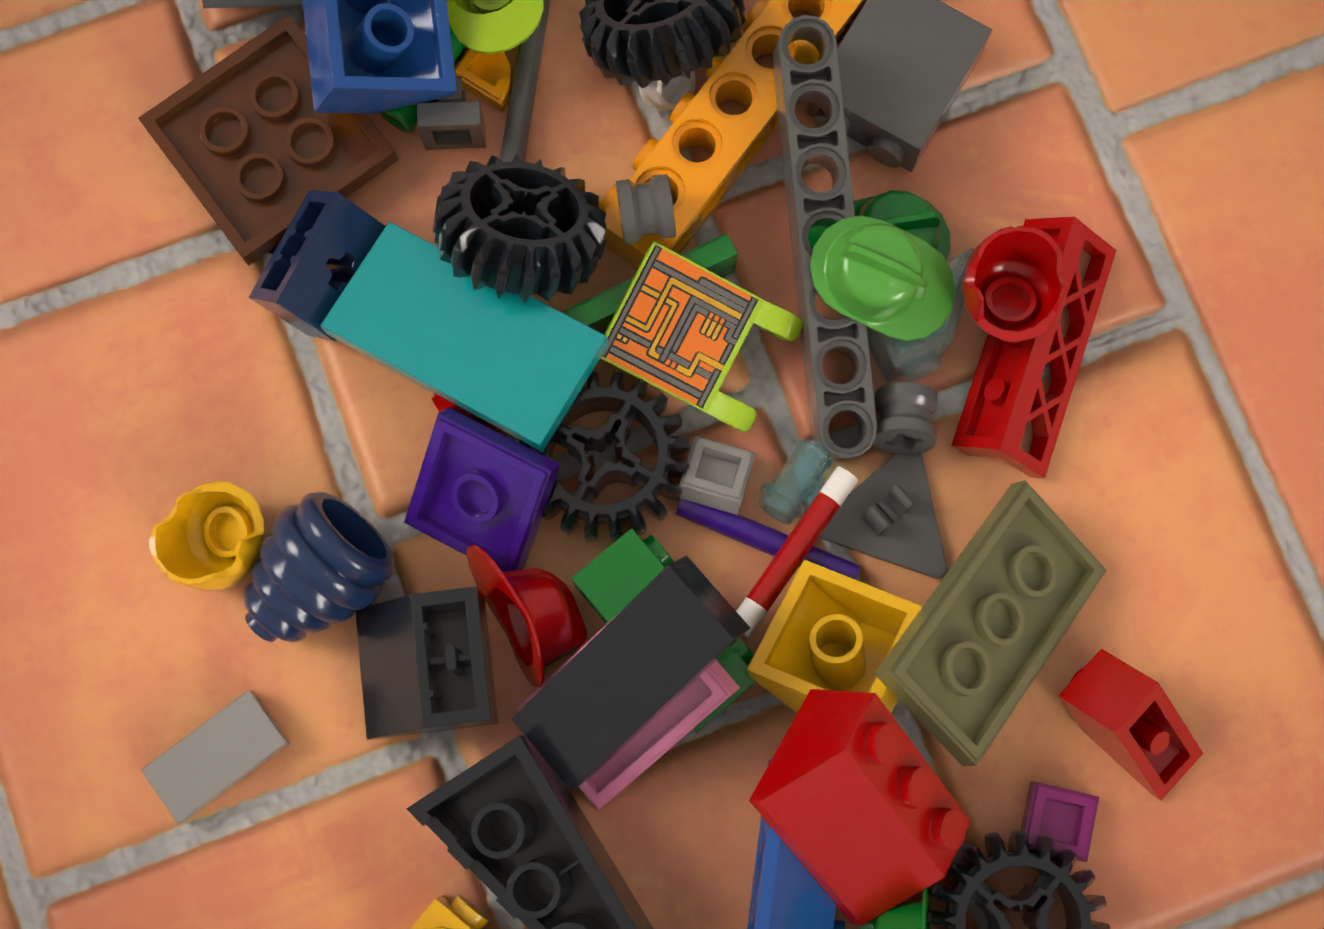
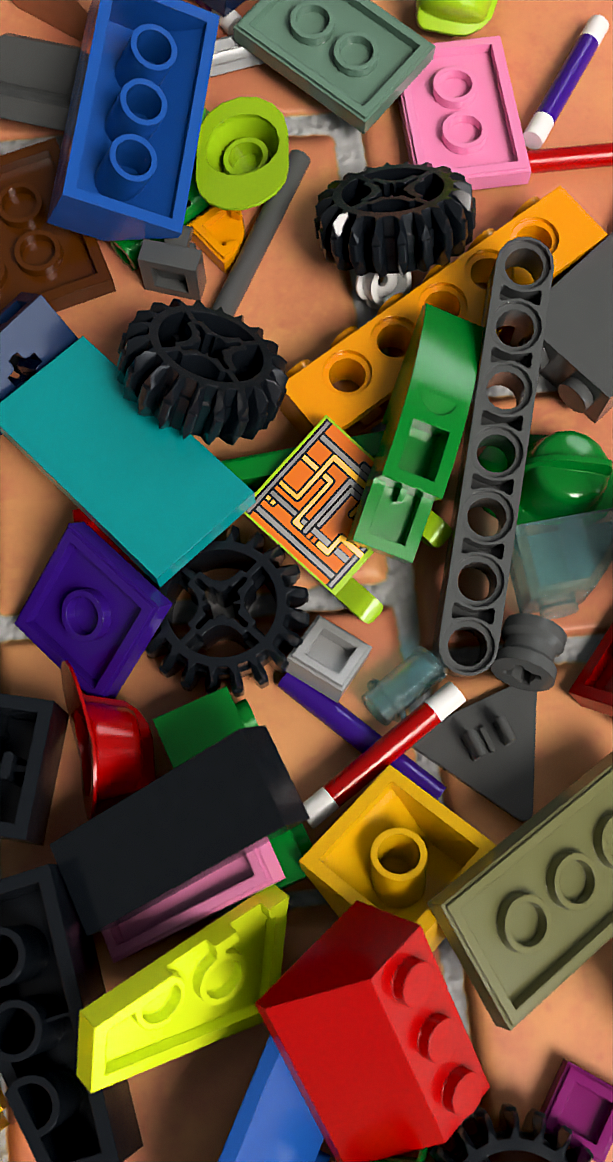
camera: 15 degrees right, 5 degrees down
(646, 208) = (326, 382): dark grey wheel -> none
(683, 814) = (187, 995): none -> neon yellow wing
(751, 234) = (420, 436): none -> green slope
(883, 277) = (541, 507): bright green piece -> none

